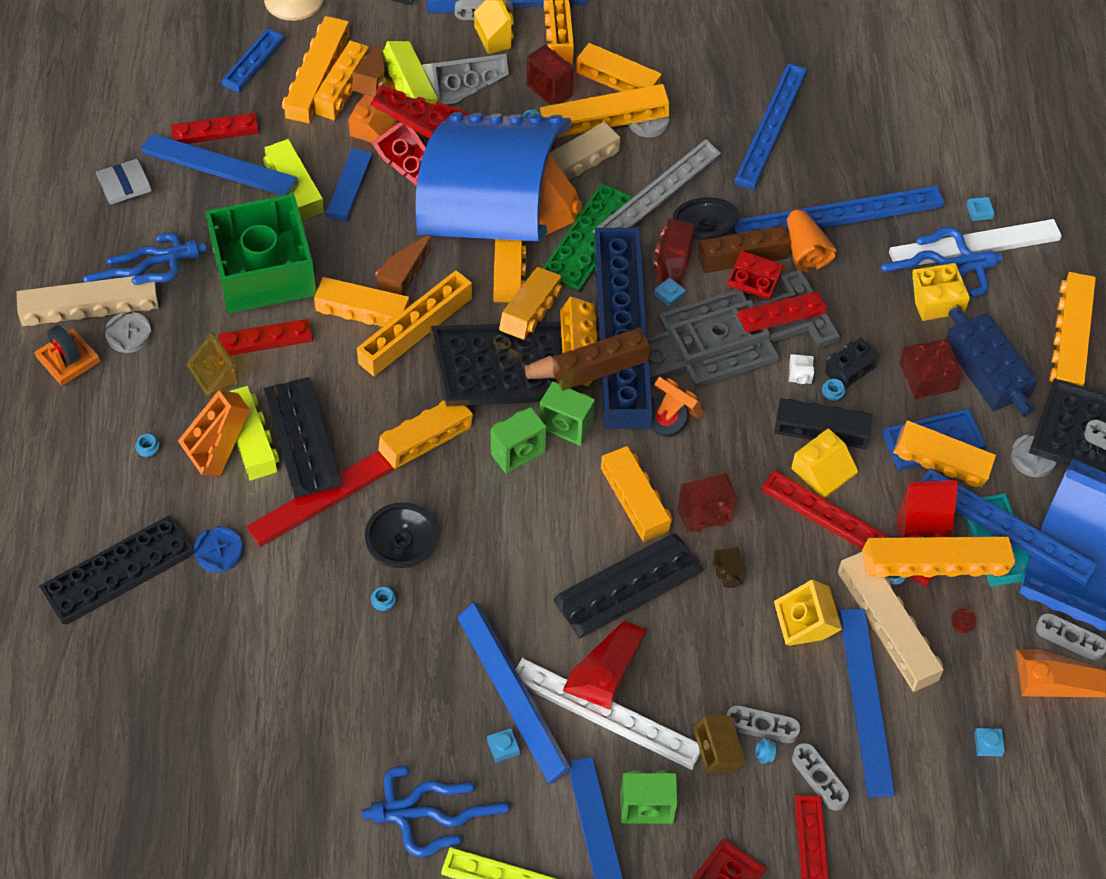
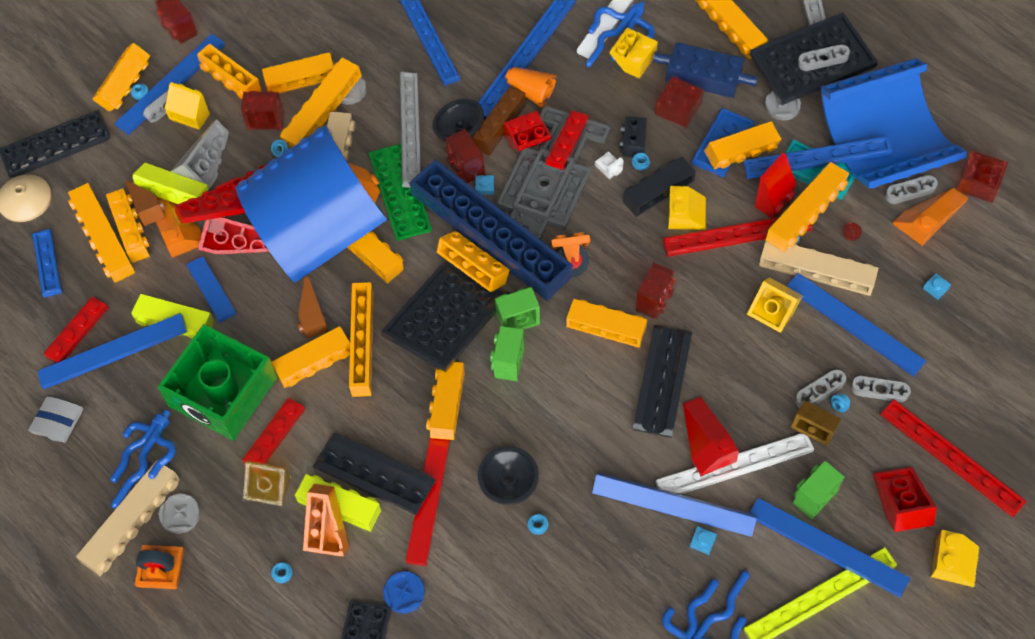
camera: 40 degrees left, 5 degrees up
(531, 303) = (419, 263): light orange brick -> none
(540, 369) = (475, 295): nougat cone -> none
(601, 359) = (511, 258): reddish brown brick -> none
(729, 567) = (705, 317): dark brown brick -> none

